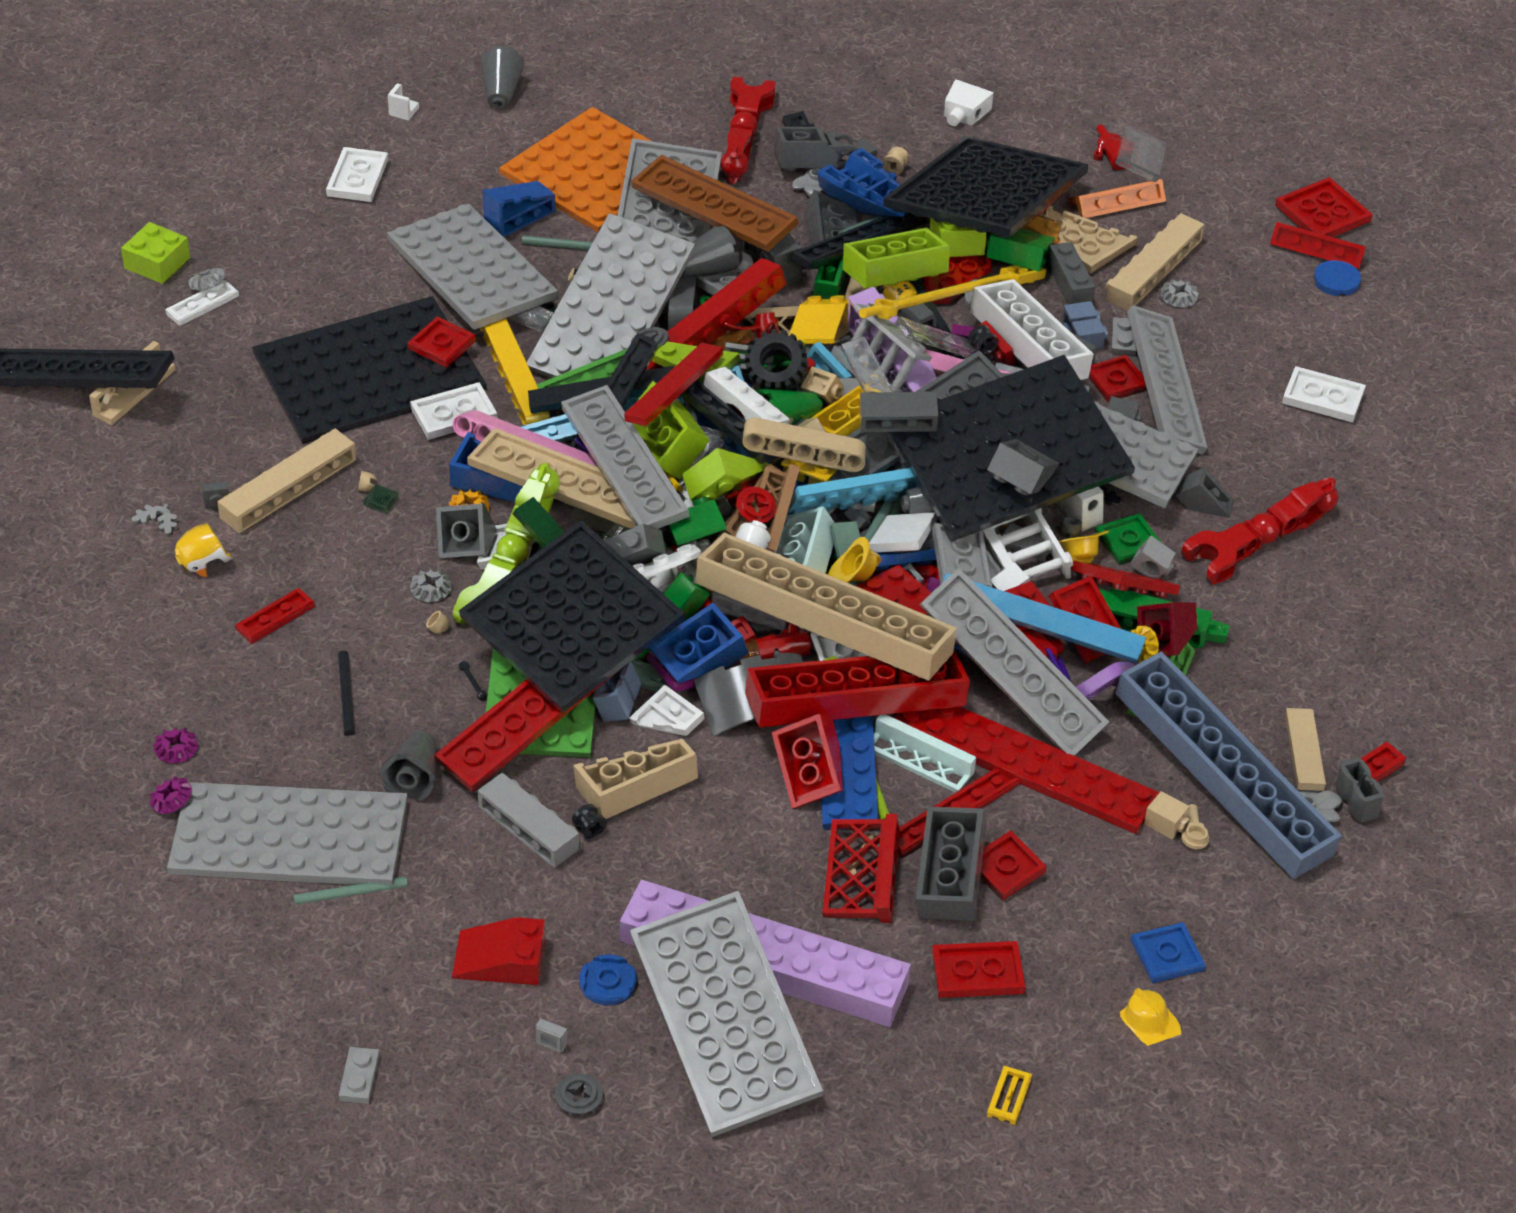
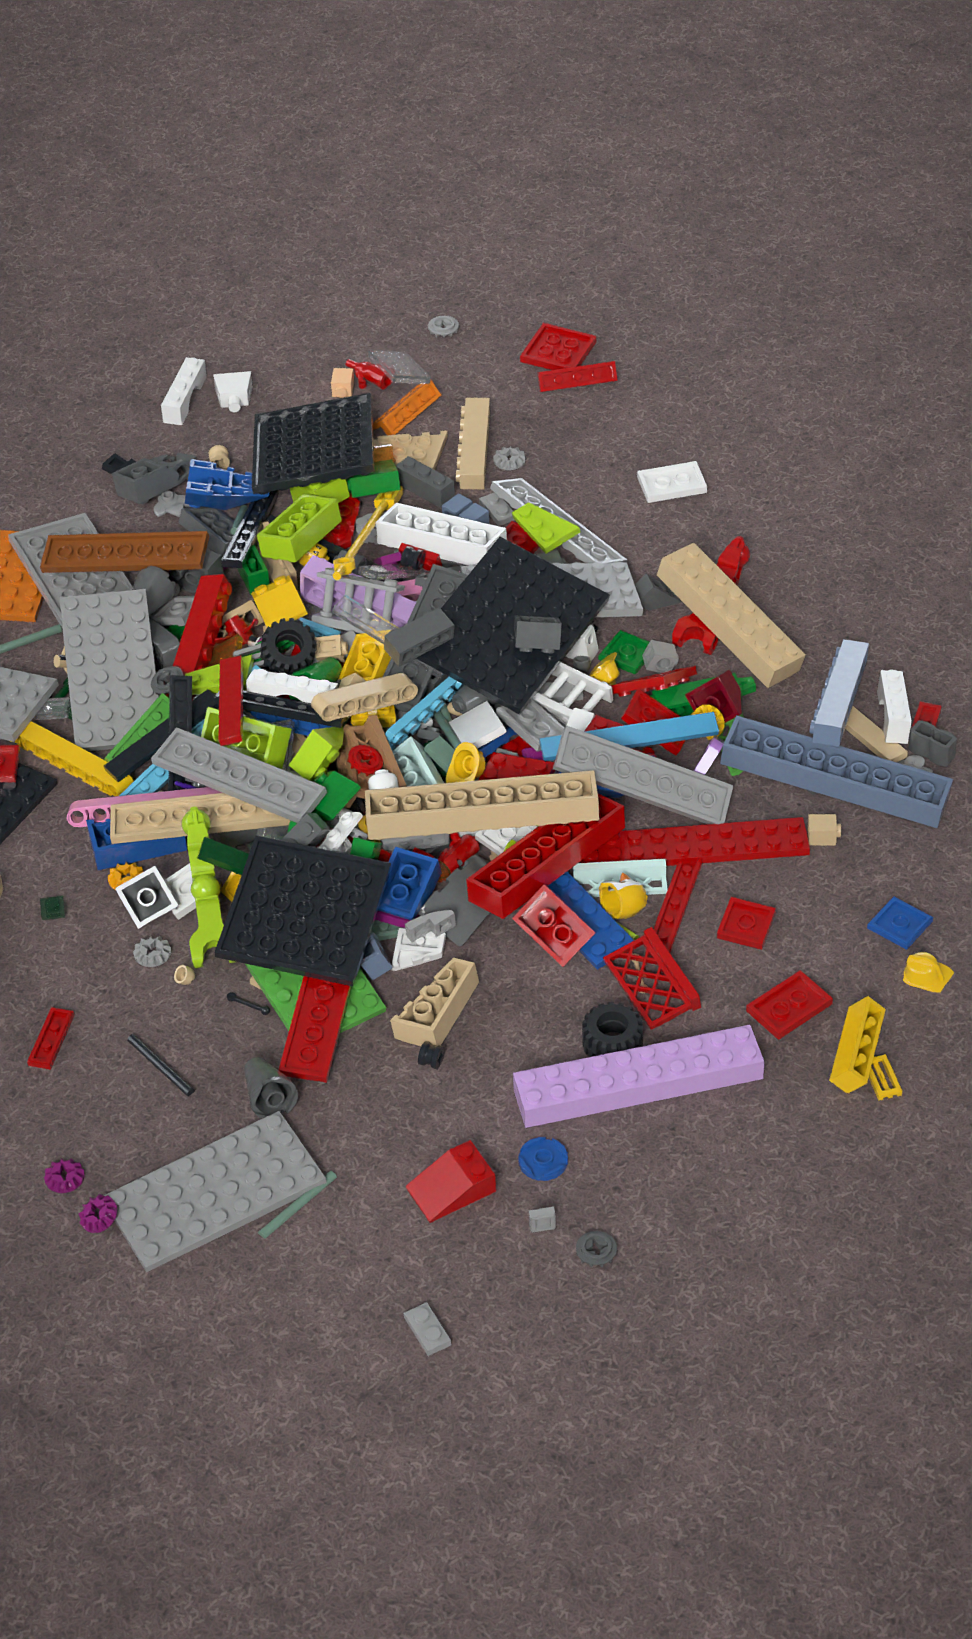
camera: 30 degrees left, 0 degrees up
(365, 479) = (29, 899): tan hinge -> none
(438, 411) = (47, 812): white plate -> none
(528, 820) = (386, 1079): light grey brick -> none
(700, 697) = (437, 922): none -> light grey slope
(726, 1014) = (655, 1130): light grey plate -> none
(743, 126) = (69, 468): red piece -> none
(776, 880) = (611, 1019): none -> black tyre
(899, 91) = (176, 403): none -> white arch
(903, 774) = (624, 899): none -> yellow piece
(951, 863) = (714, 941): dark grey brick -> none
(1006, 1047) = (857, 1045): none -> yellow brick
(1076, 144) = (342, 382): none -> light nougat brick
(1142, 373) = (544, 527): none -> lime wing
(1195, 834) = (850, 832): tan plate -> none
(1221, 131) = (450, 323): none -> light grey gear
(1254, 552) = (731, 615): none -> tan brick
(1298, 687) = (839, 693): none -> brick
(1337, 278) = (608, 394): blue tile -> none
(1345, 733) = (897, 716): none -> white arch

